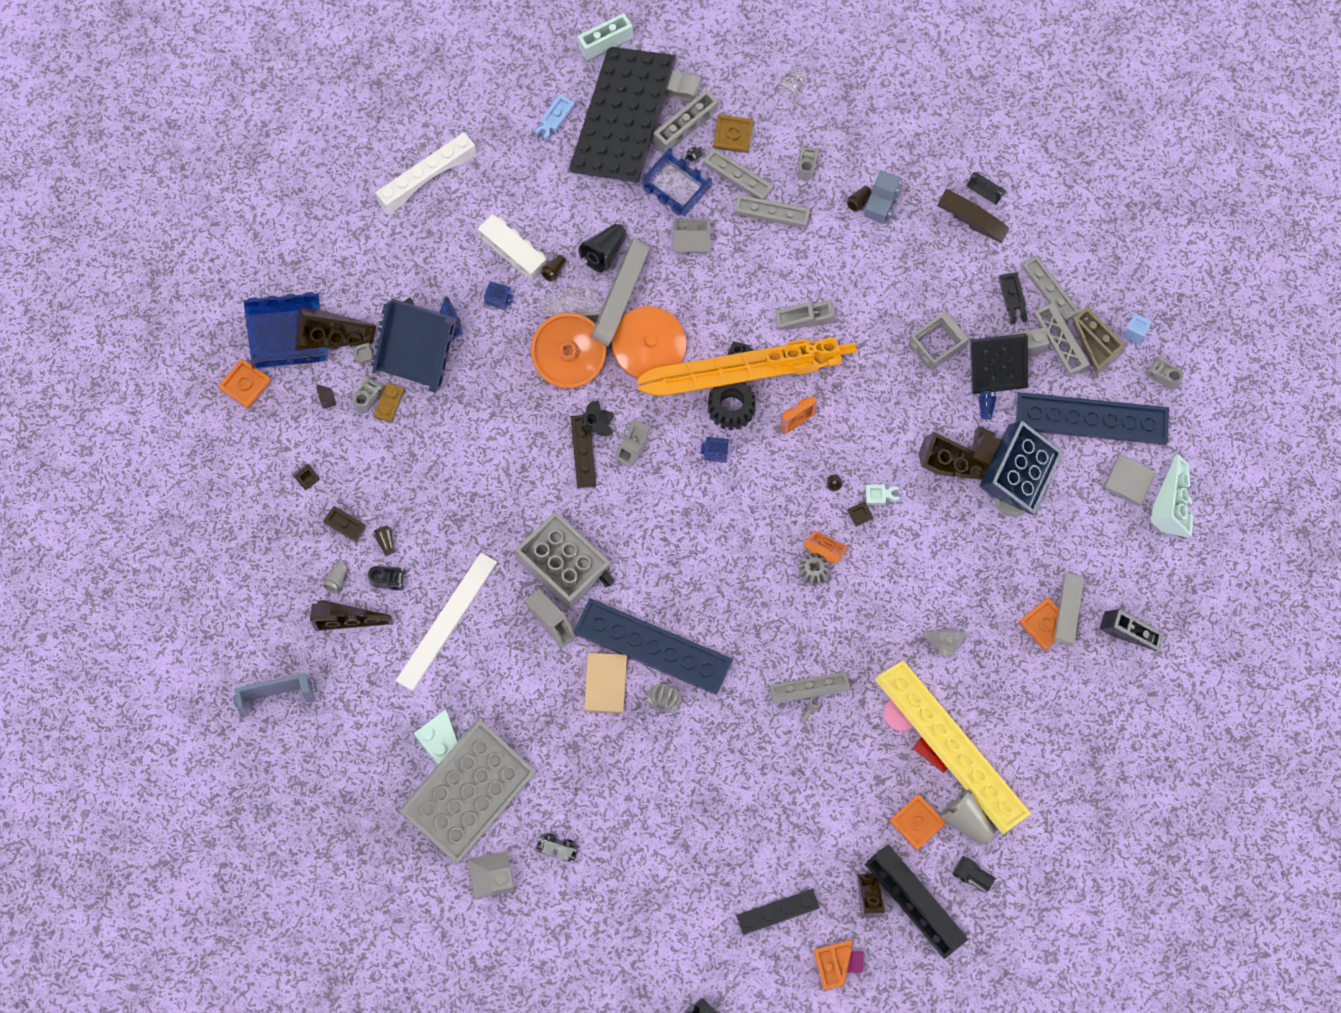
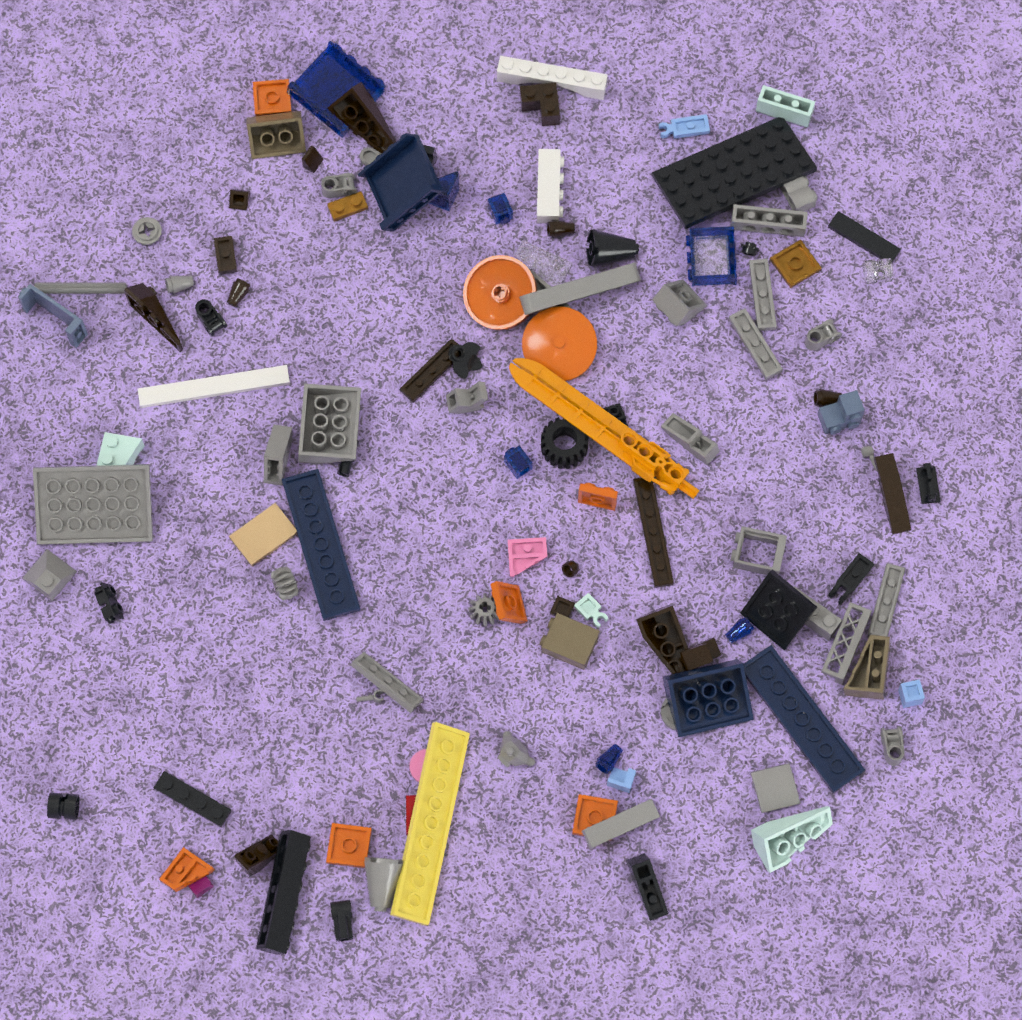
camera: 50 degrees right, 0 degrees up
(263, 559) = (151, 224): none -> light grey gear
(269, 653) = (81, 287): none -> light grey axle
(279, 405) = (276, 134): none -> dark tan slope
(439, 192) = (542, 98): none -> dark brown brick
(755, 72) = (863, 237): none -> black tile
(793, 504) = (525, 553): none -> bright pink wing
(856, 402) = (653, 533): none -> dark brown tile
(892, 529) = (569, 641): none -> dark tan brick
(926, 205) = (869, 452): none -> light grey hand
(1009, 578) = (608, 760): none -> clear blue cone
(1033, 580) = (621, 779): none -> light blue panel

